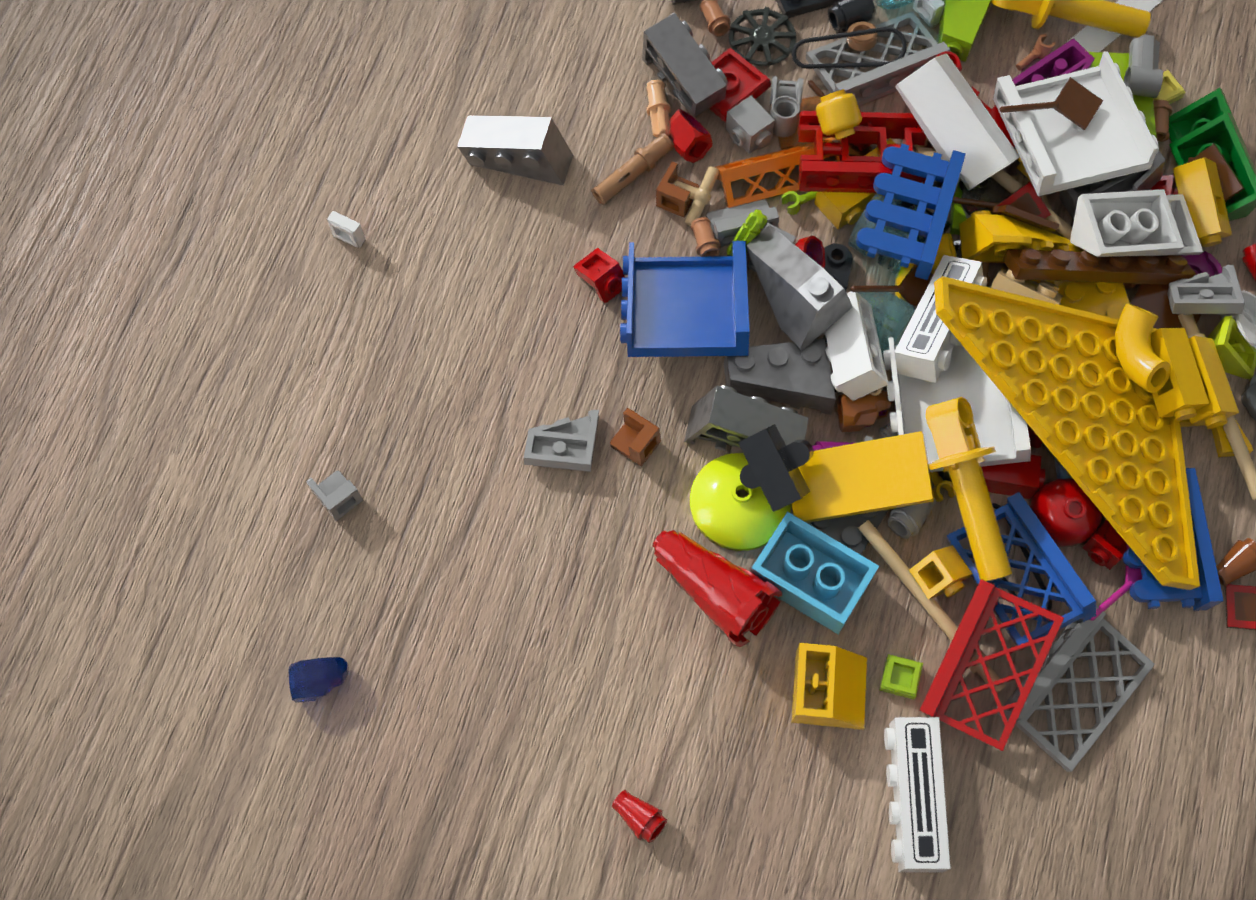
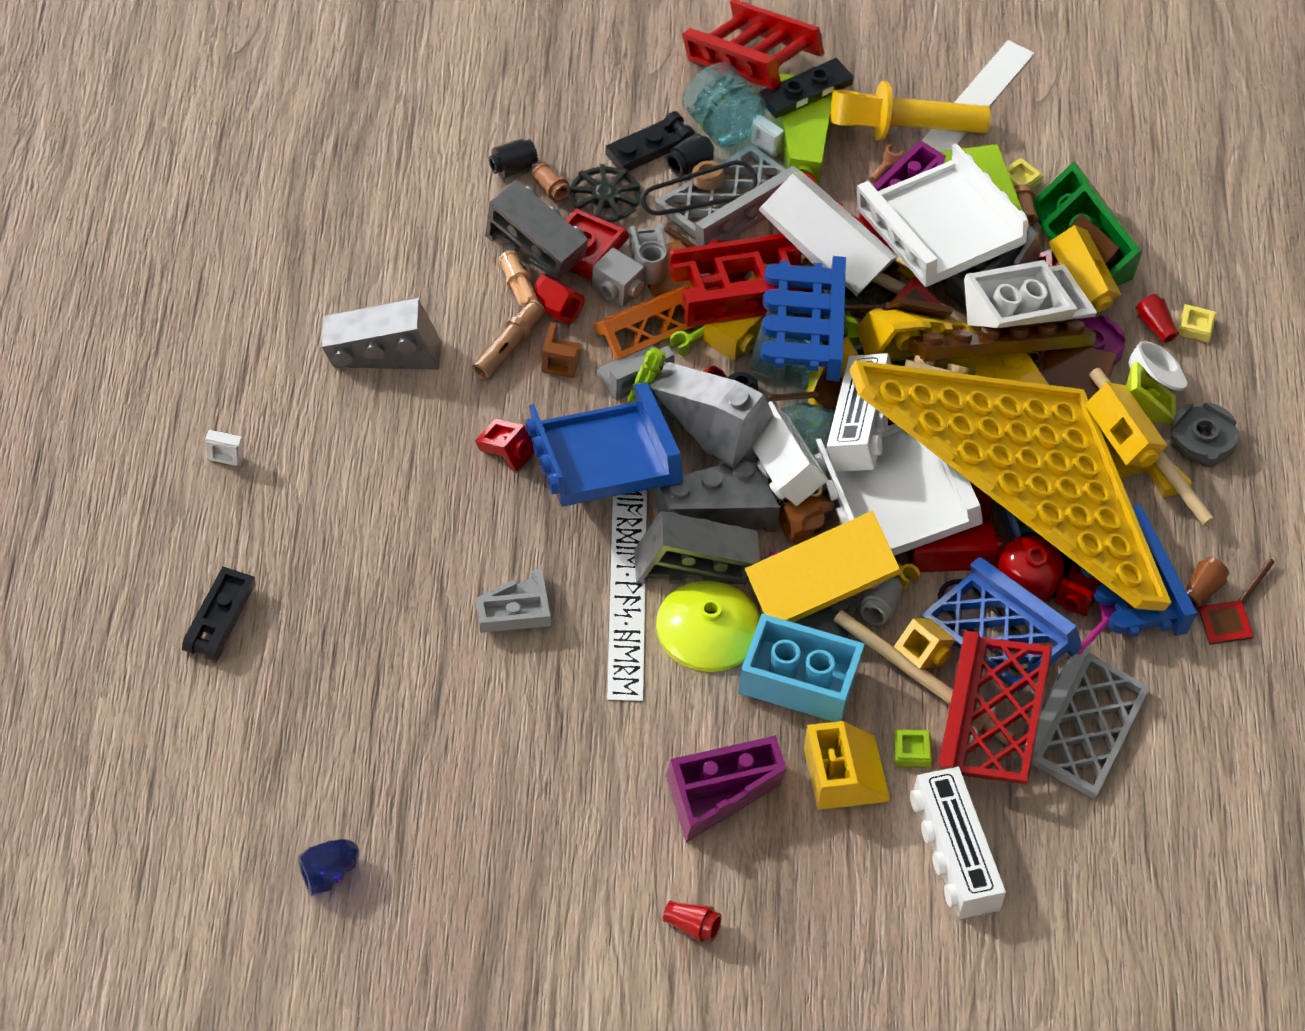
camera: 20 degrees left, 15 degrees down
(295, 394) = (219, 613): none -> black plate
(336, 494) = (292, 699): light grey panel -> none
(636, 437) = (588, 584): dark orange panel -> none
(669, 460) = (626, 600): none -> white sticker
(700, 196) = (587, 352): tan piece -> none
(704, 678) = (722, 781): none -> magenta wedge
(705, 238) = (602, 390): nougat pin -> none
(722, 590) = (721, 701): red cone -> none
(775, 466) = (738, 572): black piece -> none
(838, 114) = (710, 244): yellow head -> none
(961, 455) = (916, 525): yellow piece -> none
(1073, 102) = (934, 194): reddish brown piece -> none
(1135, 349) = (1055, 405): yellow cylinder -> none
(1143, 72) = (995, 155): light grey piece -> none
(1184, 389) = (1095, 420): yellow brick -> none
(1207, 294) = (1105, 350): light grey wing -> none

